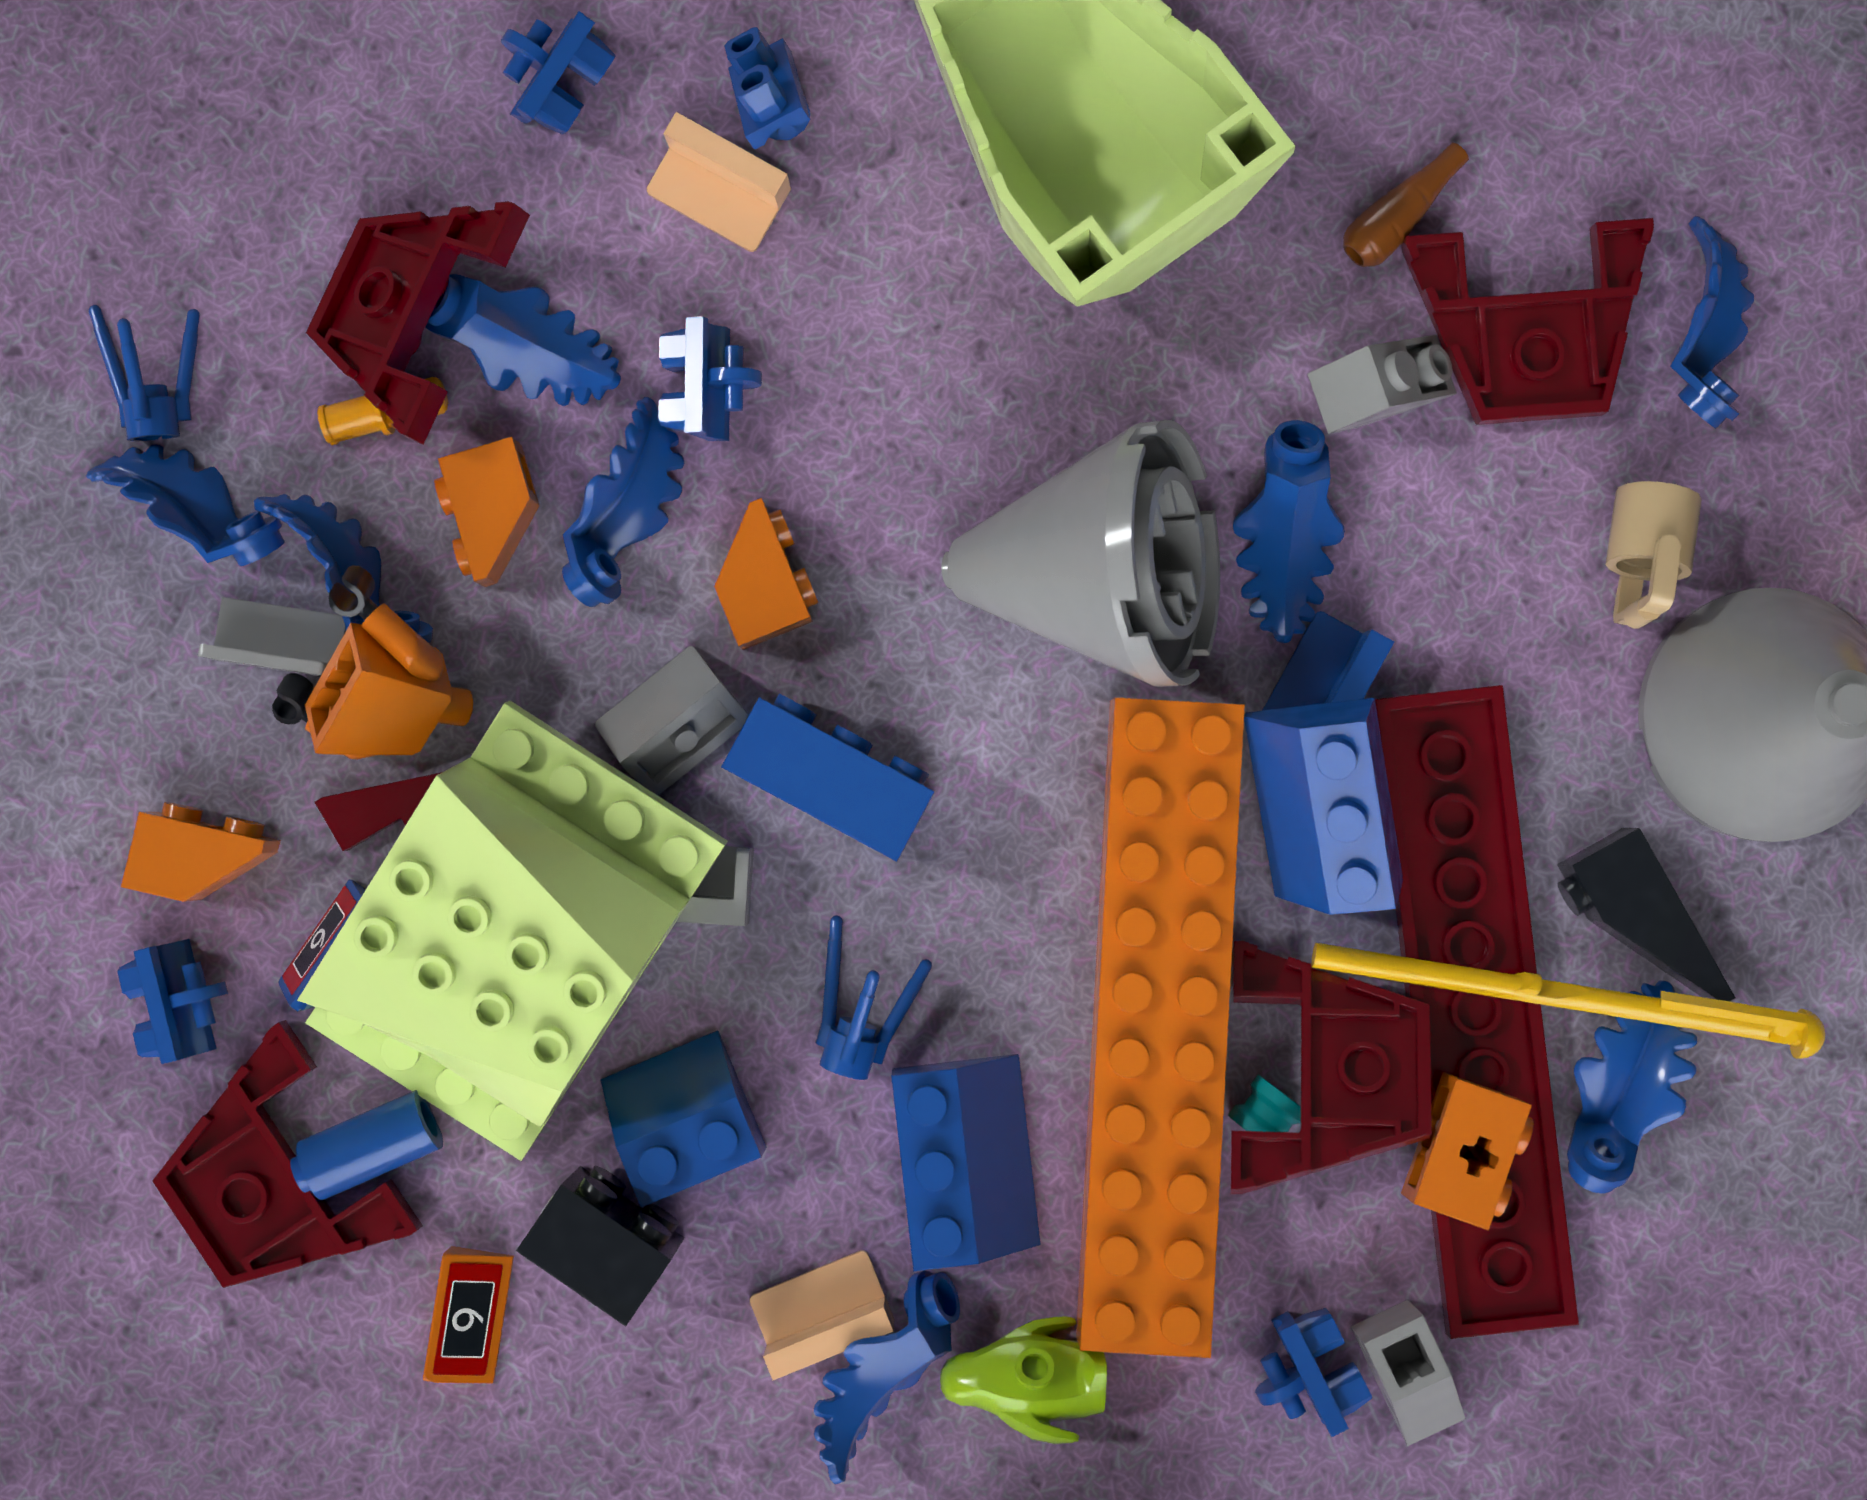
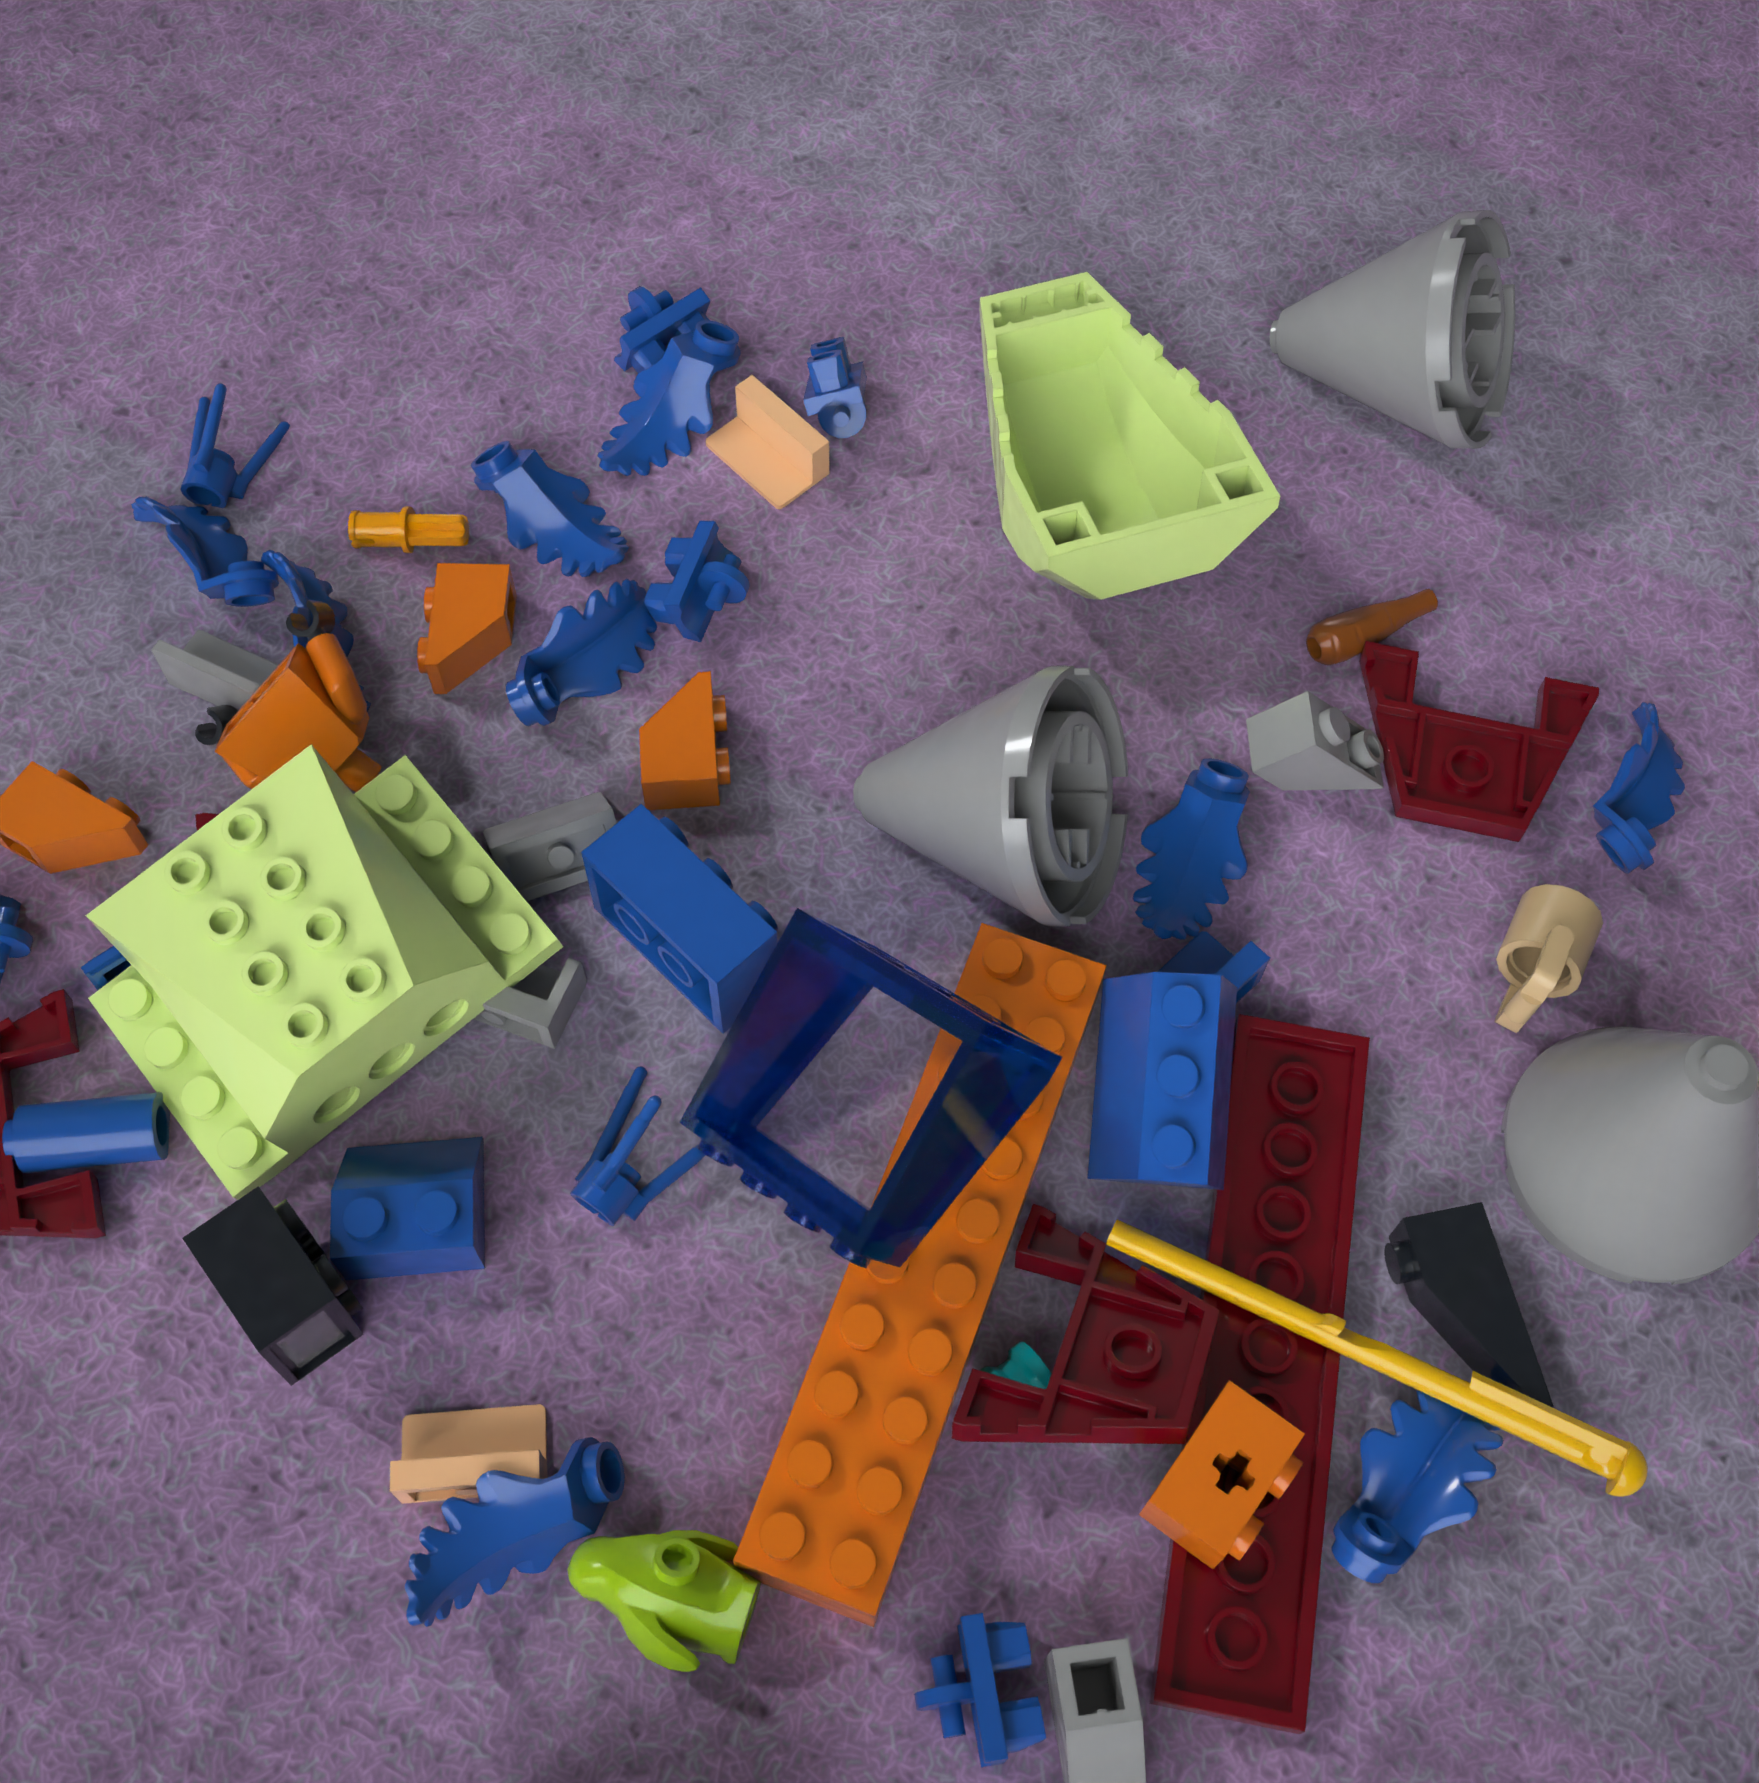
camera: 10 degrees right, 25 degrees down
(387, 291) = (436, 450): dark red wing -> none
(468, 1316) = (104, 1338): slope -> none
(595, 158) = (671, 400): none -> blue plant
(965, 1161) = (681, 1335): blue slope -> none
(1100, 827) = (789, 1016): none -> clear blue windscreen

